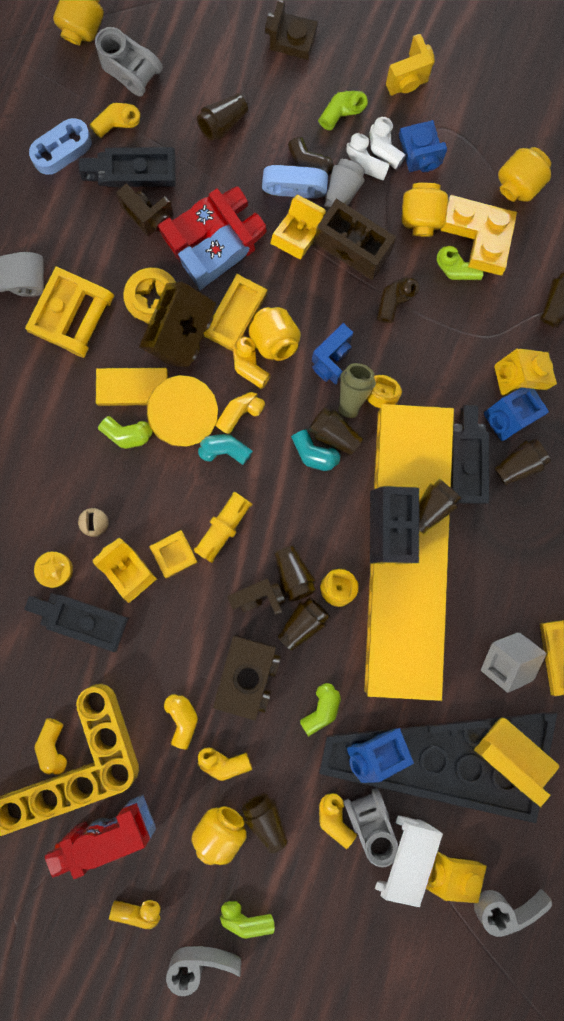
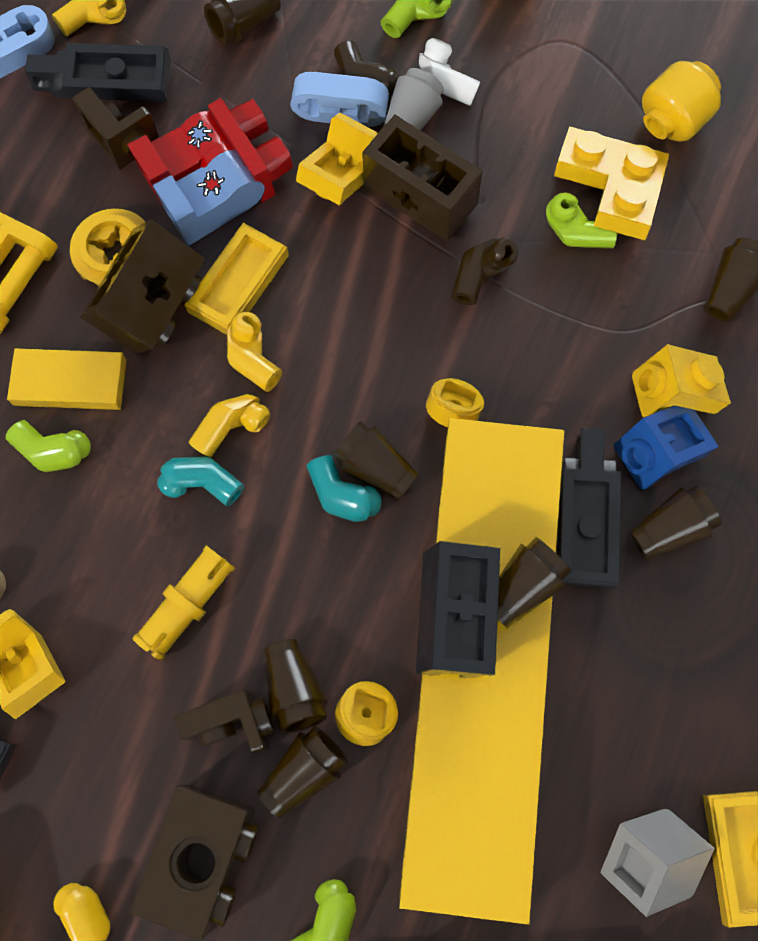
camera: 10 degrees right, 10 degrees down
(173, 554) = (101, 643): yellow tile -> none
(182, 411) = (137, 417): yellow tile -> none
(274, 333) = (291, 309): yellow head -> none
(335, 348) = (376, 335): blue bracket -> none
(355, 388) = (409, 393): olive cone -> none
(381, 143) = (470, 55): white arm -> none
(422, 147) = (530, 62): blue bracket -> none
(424, 209) = (530, 142): yellow head -> none

